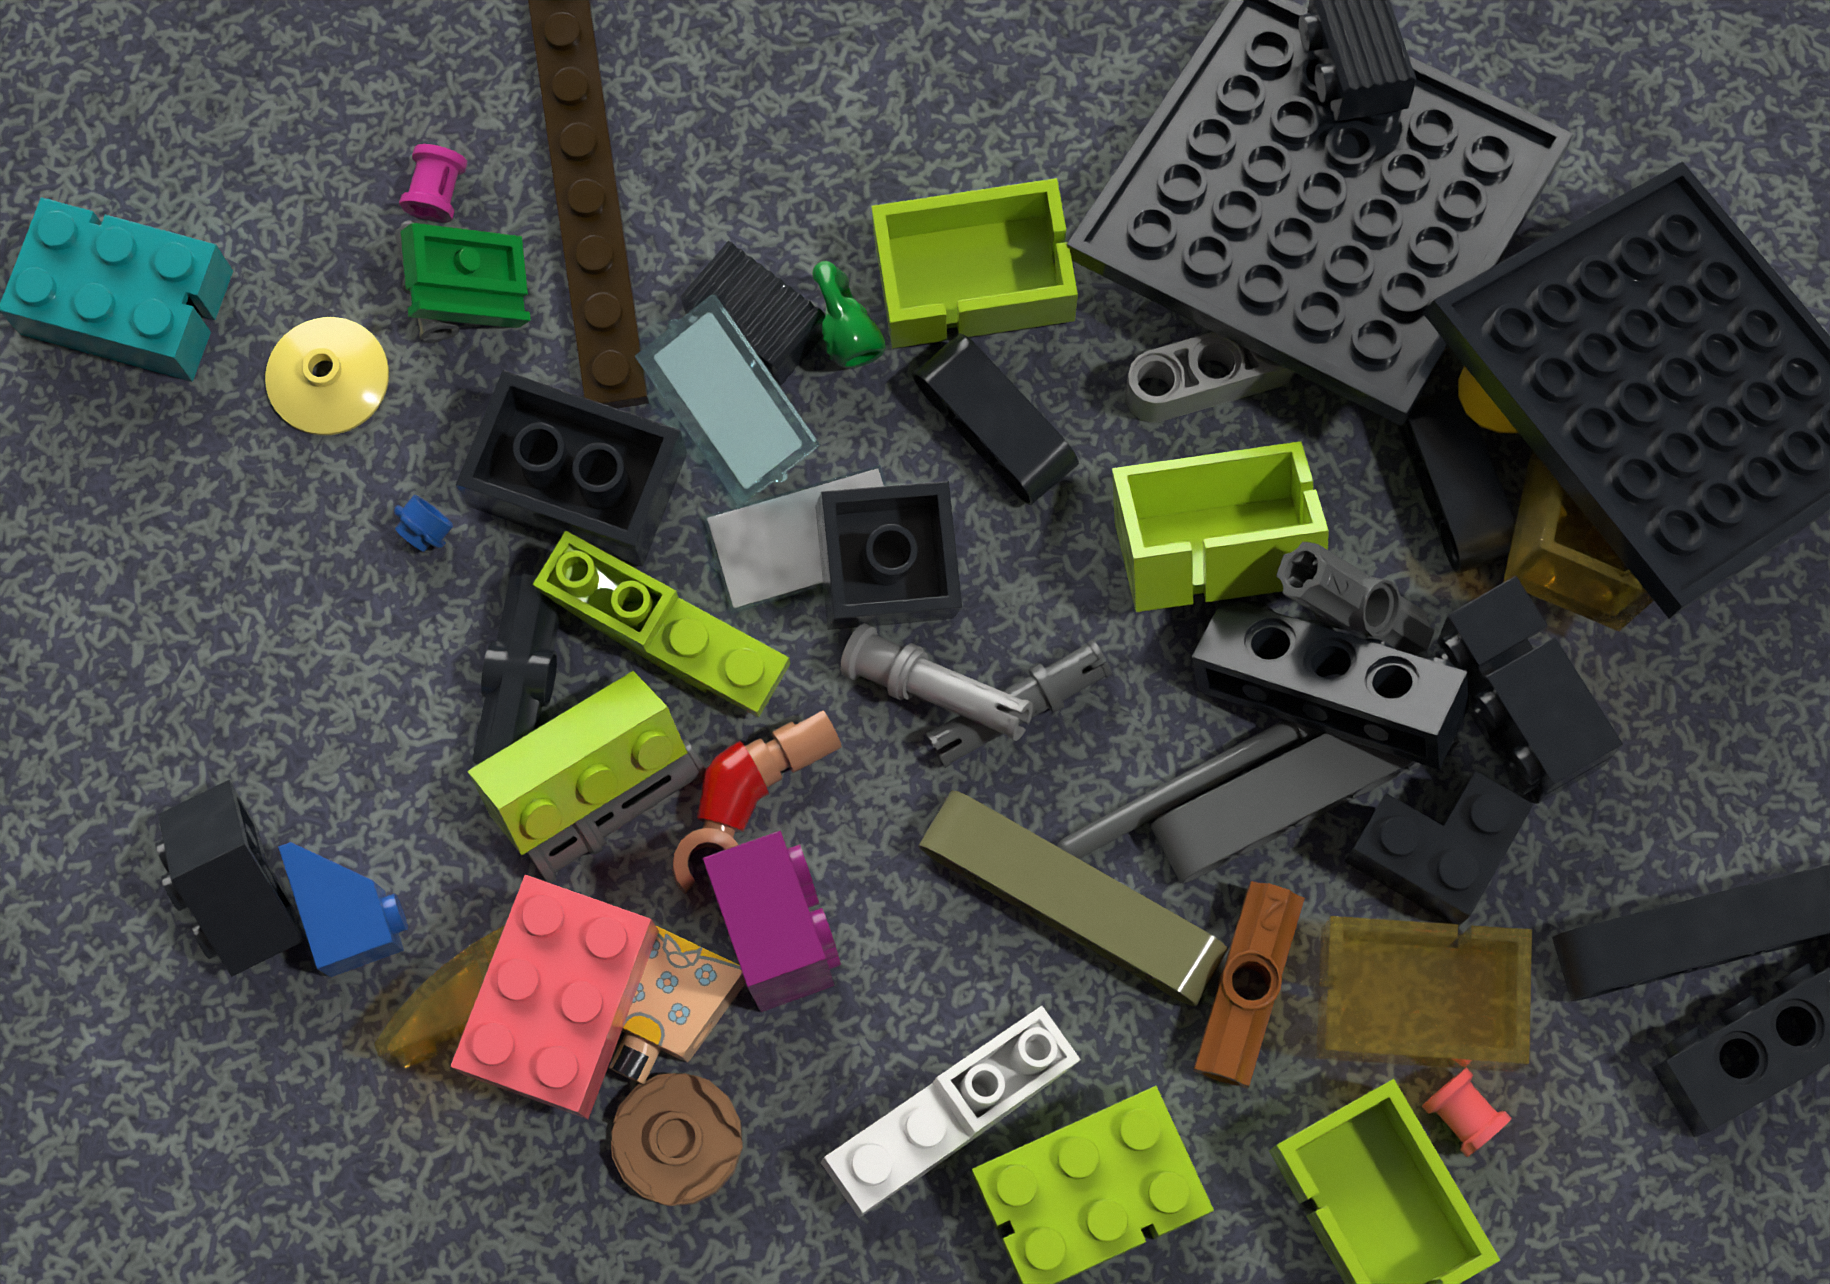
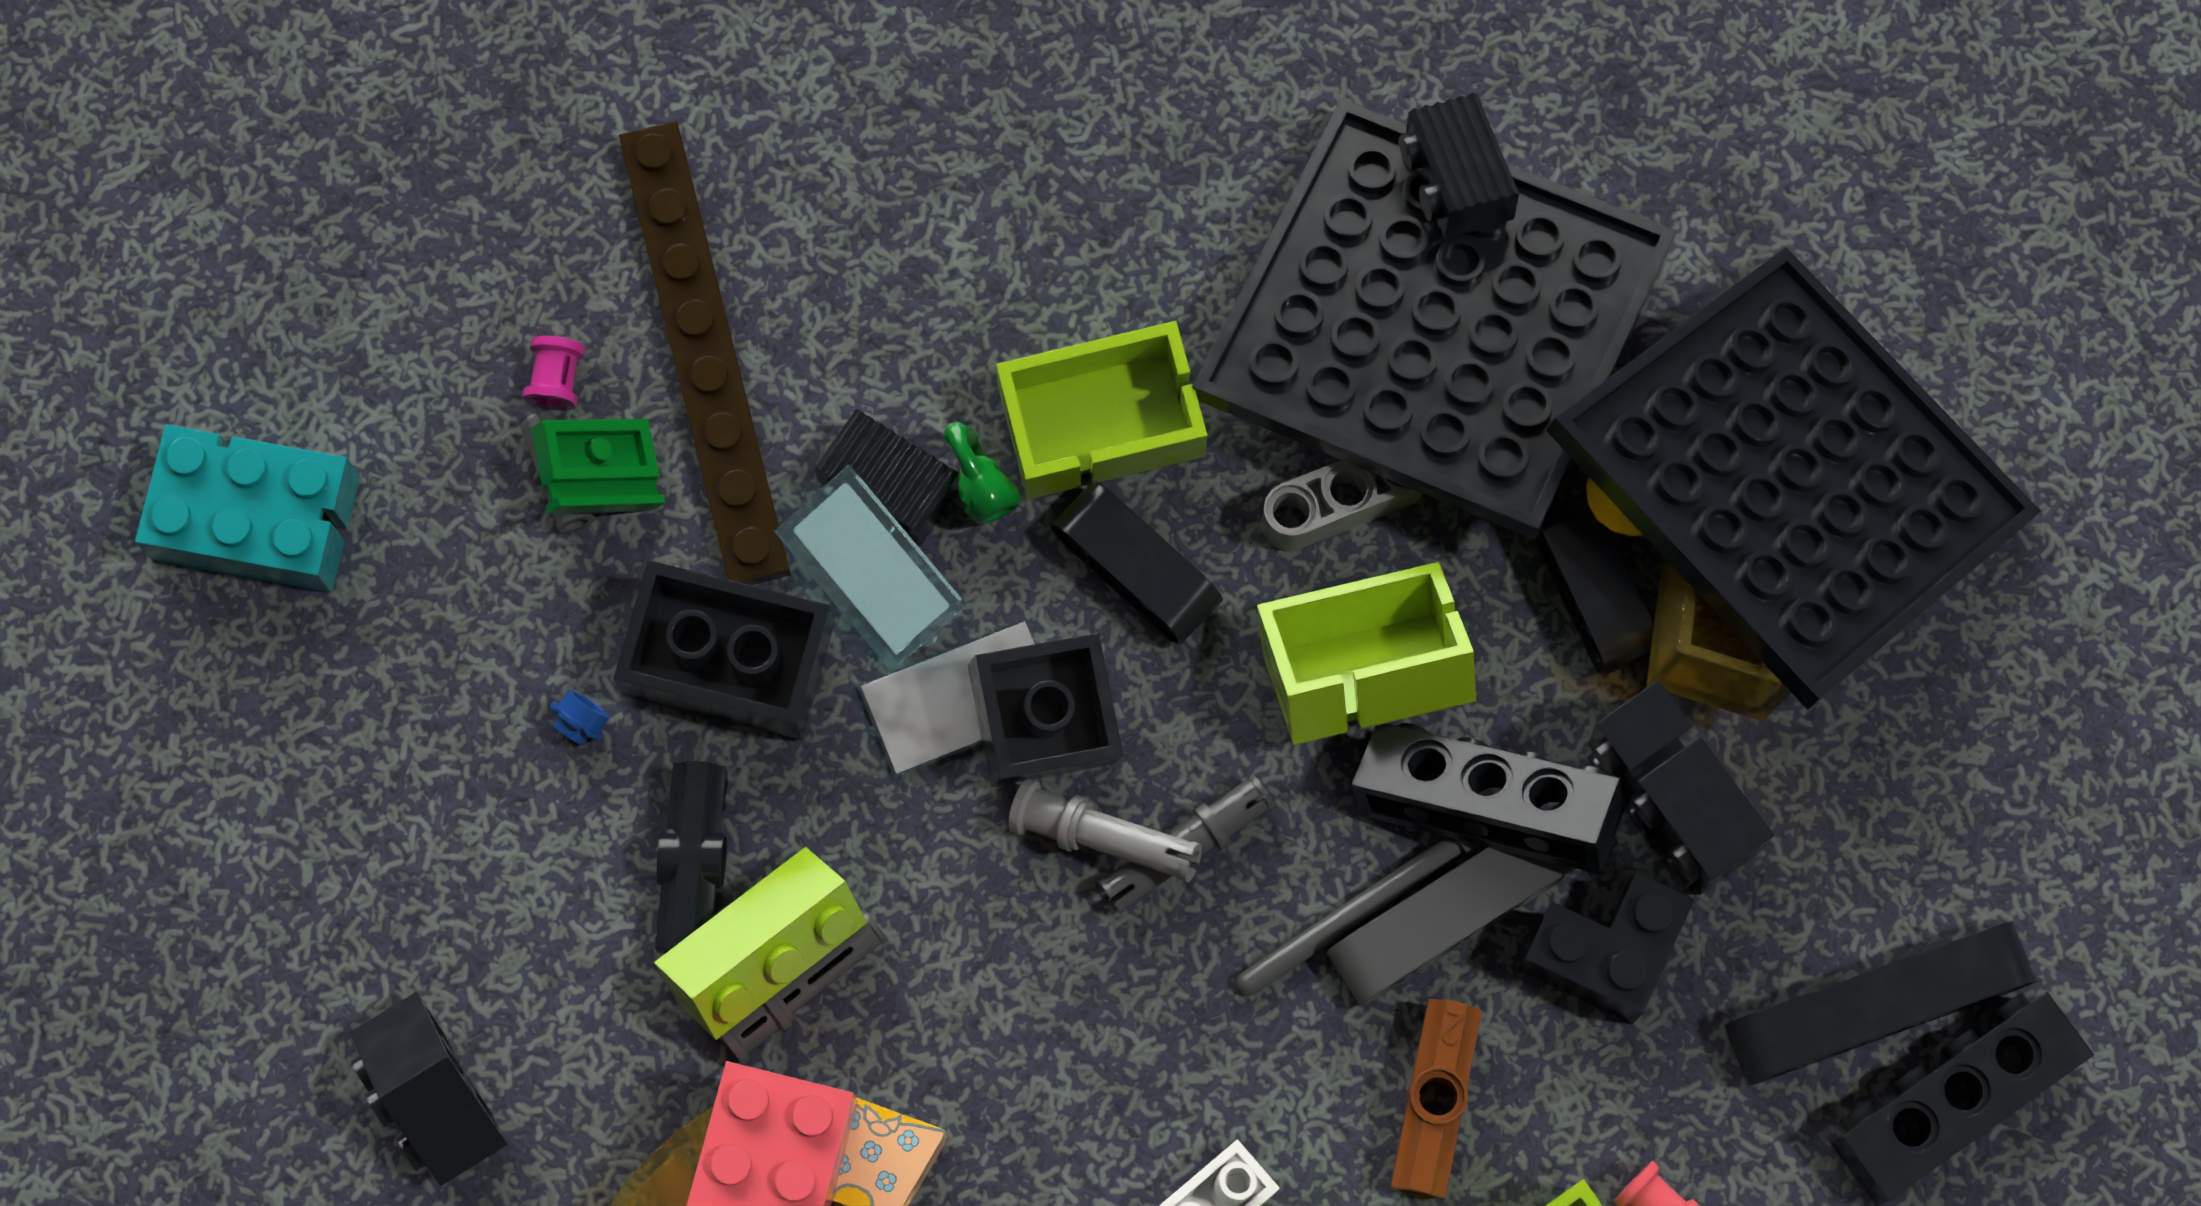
camera: 10 degrees left, 0 degrees up
(342, 912) = (542, 1111): blue slope -> none
(343, 396) = (478, 601): light yellow dish -> none
(661, 625) = (828, 799): lime slope -> none
(741, 779) = (920, 945): piece -> none
(765, 908) = (966, 1078): magenta piece -> none
(1073, 898) = (1257, 1030): olive beam -> none
(1353, 600) = (1504, 716): dark grey piece -> none
(1424, 1004) = (1604, 1100): clear yellow piece -> none

